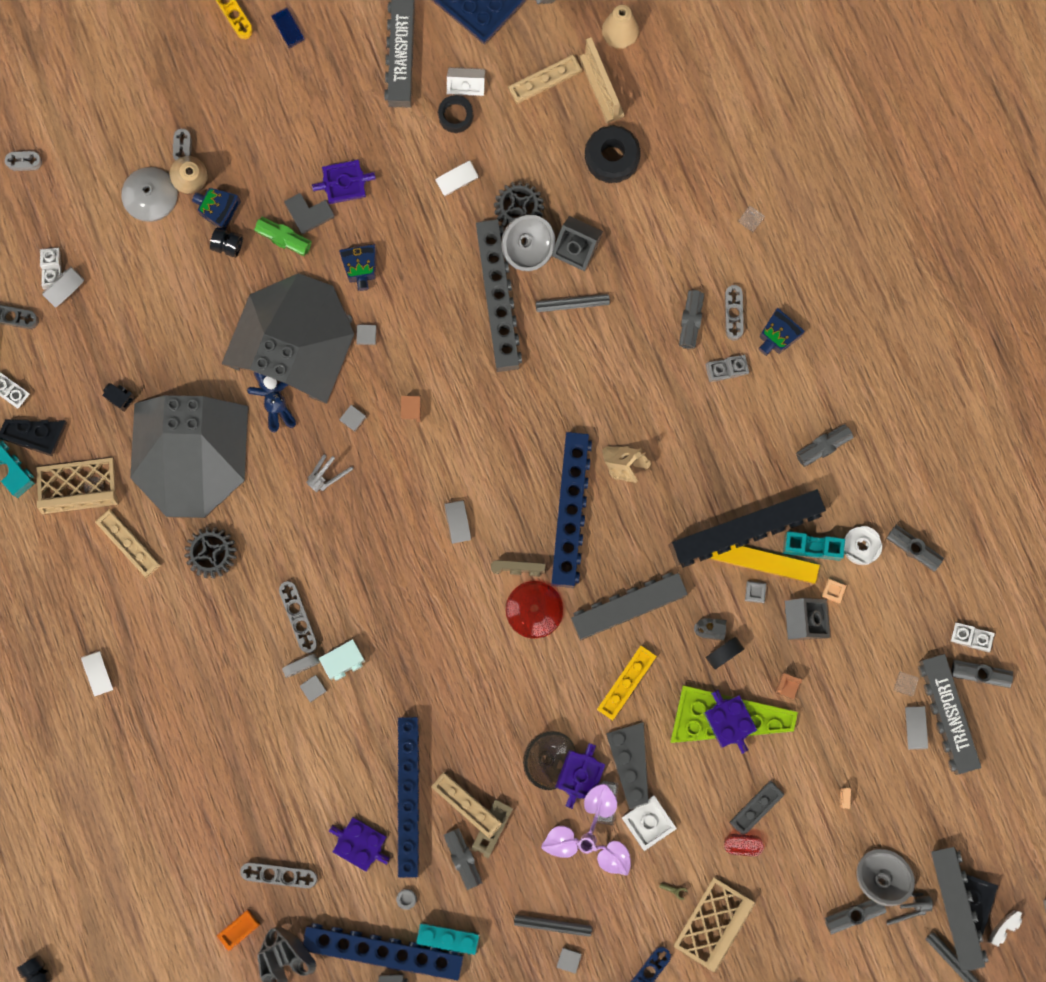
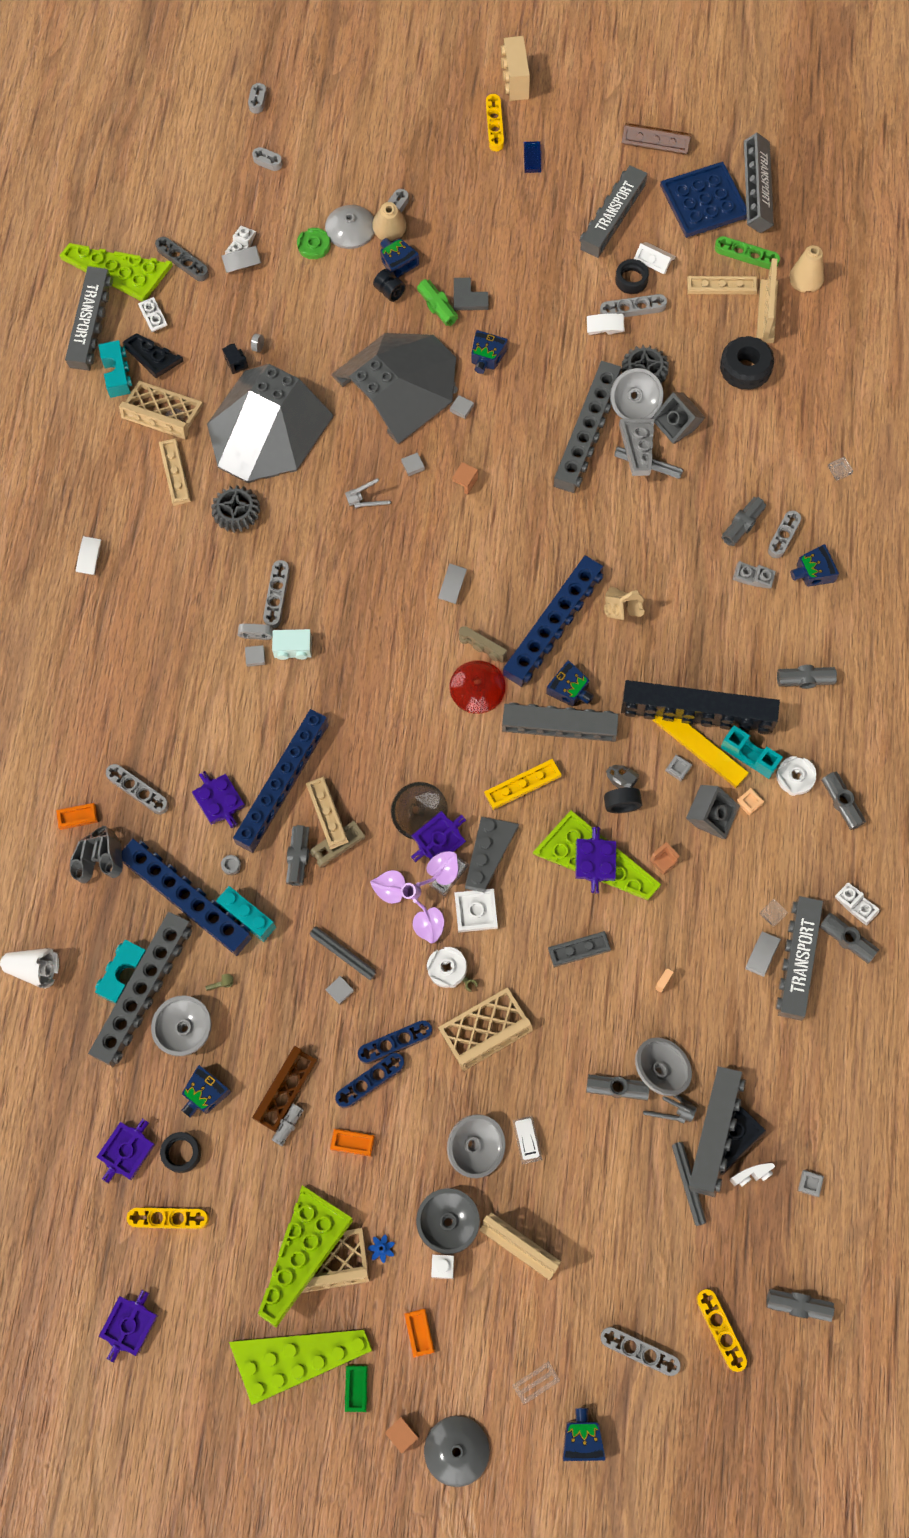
camera: 30 degrees right, 10 degrees down
(123, 231) = (313, 243): none -> bright green tile
(131, 368) = (257, 342): none -> light grey tile
(273, 401) = (356, 418): dark blue animal -> none
(343, 181) = (510, 285): dark purple plate -> none
(470, 142) = (632, 303): none -> light grey beam
(551, 36) = (747, 249): none -> bright green beam
(553, 288) = (638, 443): none -> light grey wing
(619, 566) = (570, 685): none -> dark blue torso
(644, 897) = (445, 956): none -> white plate
(743, 845) = (550, 973): clear red tile -> none

